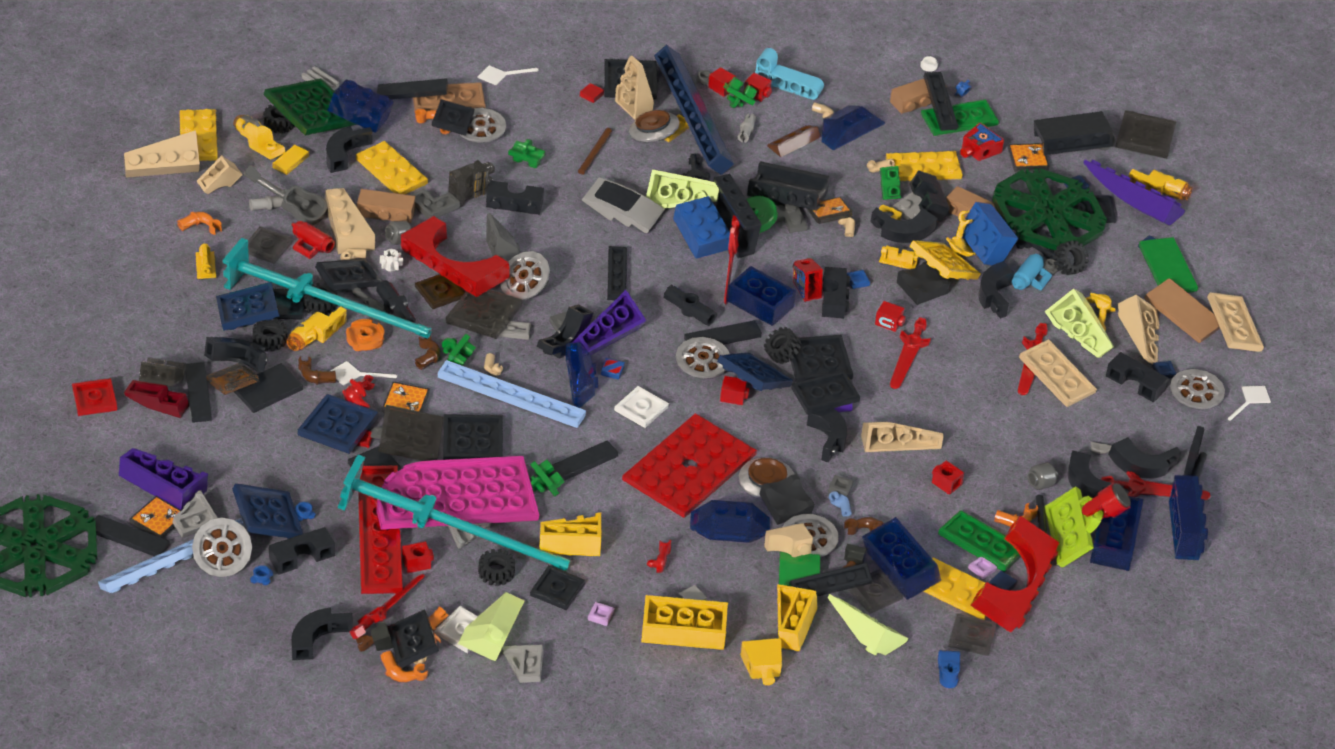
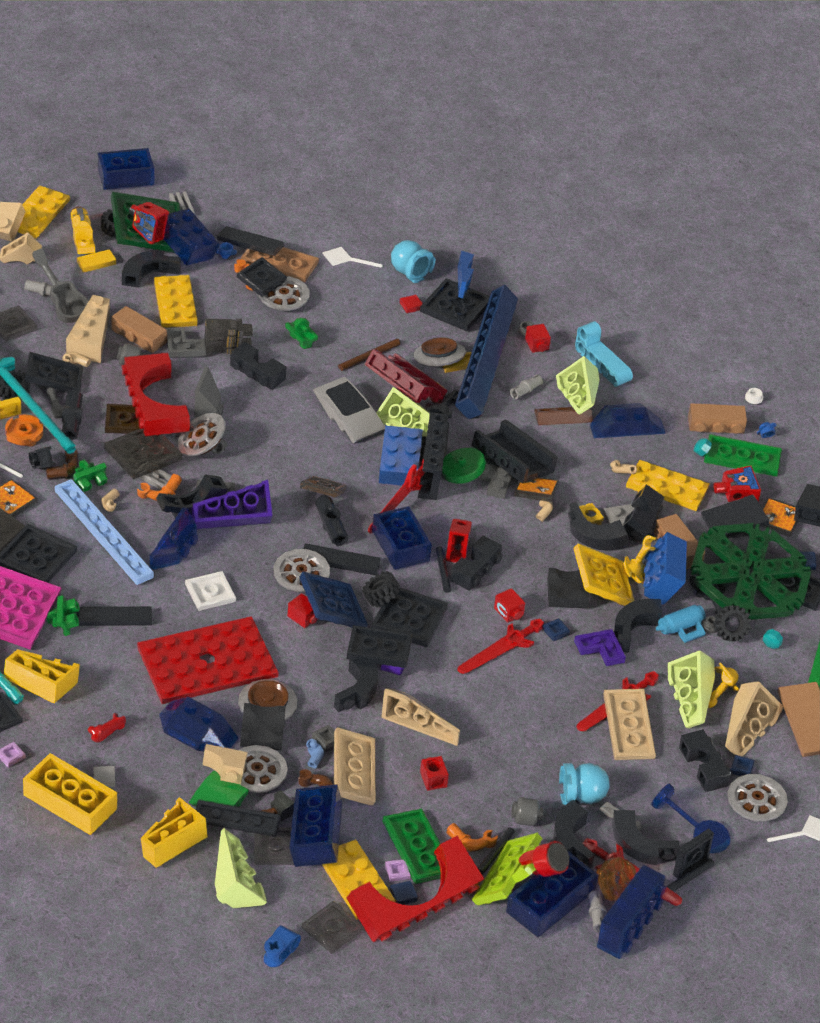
camera: 30 degrees right, 0 degrees up
(247, 65) = (126, 168): none -> clear blue brick
(312, 236) = (54, 332): red piece -> none
(323, 103) = (149, 221): none -> red torso
(391, 260) = (102, 376): white gear -> none
(398, 106) = (226, 250): none -> blue plate
(406, 352) = (41, 458): none -> black piece
(531, 342) = (170, 488): none -> orange piece
(563, 52) = (412, 260): none -> medium azure tile
(612, 368) = (214, 547): blue tile -> none
(614, 45) = (464, 272): none -> blue slope
(616, 271) = (293, 466): black tile -> none
(634, 91) = (440, 316): tan wedge -> none
(650, 157) = (405, 377): none -> dark red fence
(660, 279) = (323, 486): none -> clear smoke tile
(733, 88) = (540, 355): green hips -> none
(761, 84) = (566, 353): red brick -> none
(762, 659) = (115, 859): yellow torso -> none
(791, 109) = (579, 384): none -> yellowish green wedge
(812, 311) = (443, 569): none -> black bar
(820, 108) = (613, 396): tan arm -> none
(858, 279) = (512, 561): blue tile -> none
(882, 497) = (354, 766): none -> tan tile
(890, 182) = (615, 486): green hips -> none
(906, 259) = (563, 556): yellow hinge -> none
(926, 122) = (702, 446): none -> teal tile
(938, 321) = (556, 629): none -> dark blue tile
(940, 101) = (729, 431): black tile -> none
(988, 316) = (602, 642): none -> dark purple plate
(996, 169) = (736, 512): none -> black tile
(1066, 434) = (584, 783): none -> medium azure tile
(1106, 258) = (772, 639): none -> teal tile
(1154, 500) = (607, 873): none -> clear orange plate
(1156, 530) = (597, 910): none -> light grey pin
(1182, 431) = (721, 835): none -> clear blue piece

